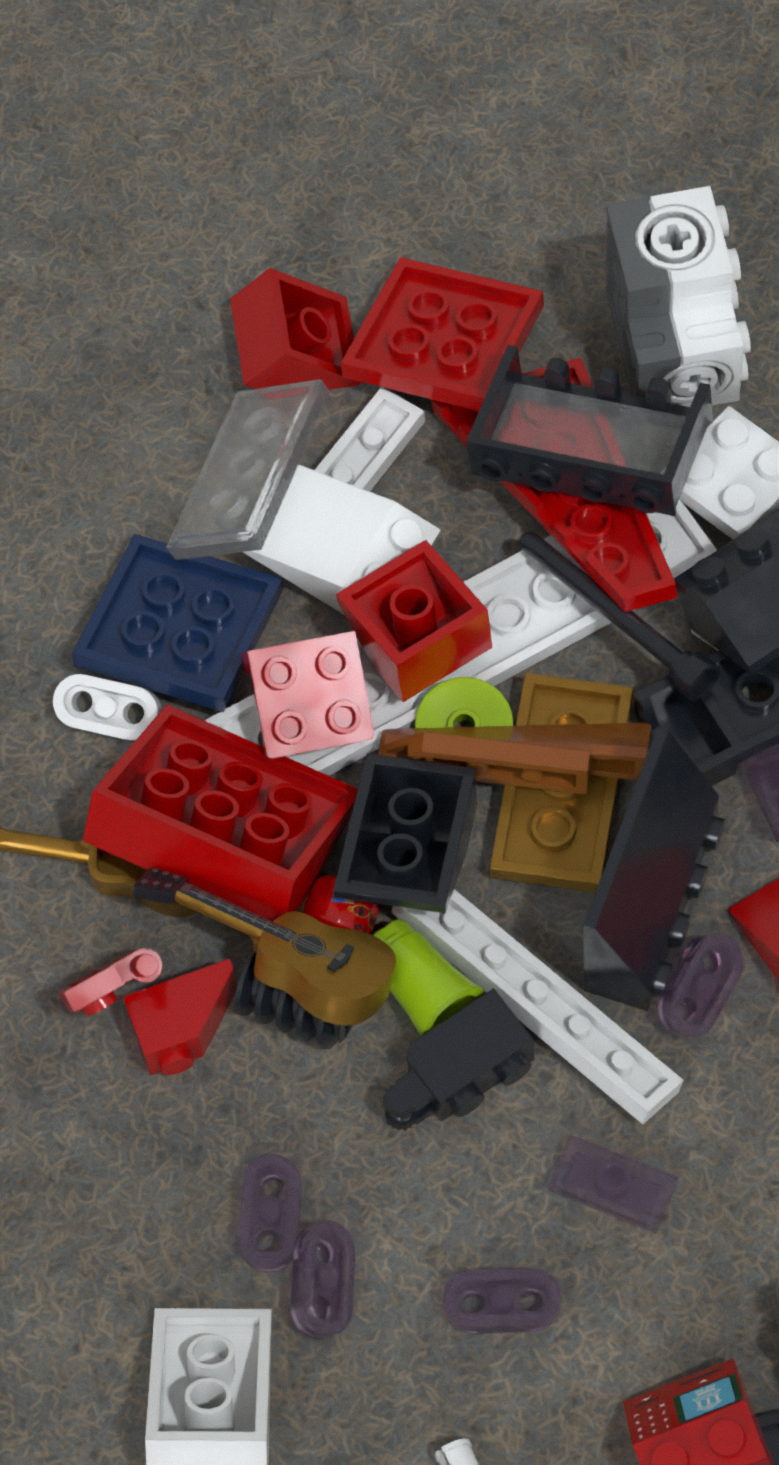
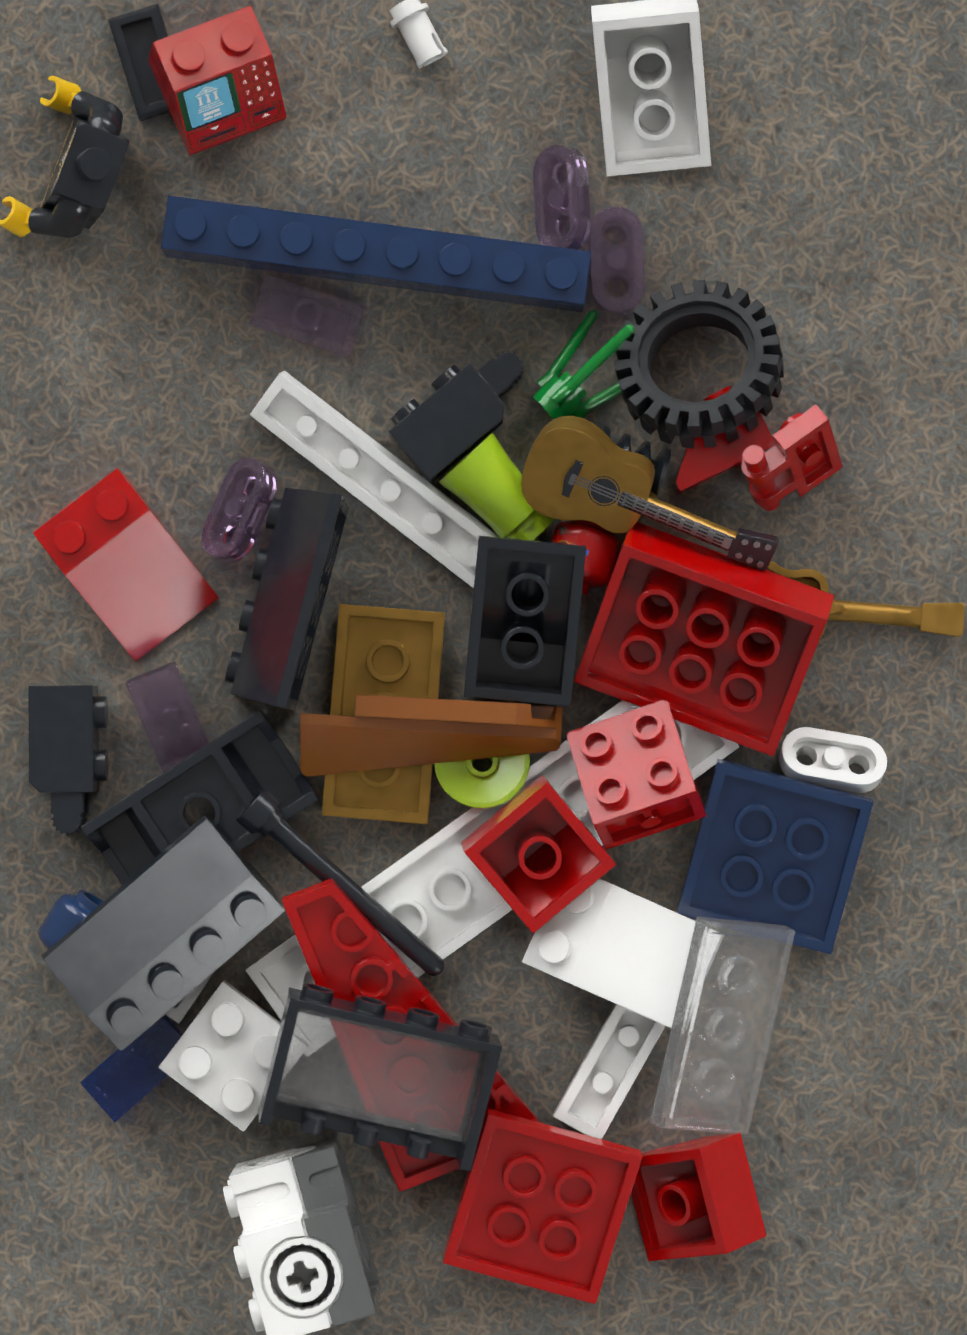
camera: 175 degrees right, 25 degrees up
(262, 1088) = (709, 417): none -> black tyre
(341, 1078) = (564, 394): none -> green plant
(502, 1295) = (399, 192): clear purple plate -> none
(534, 1232) = (375, 253): none -> dark blue brick

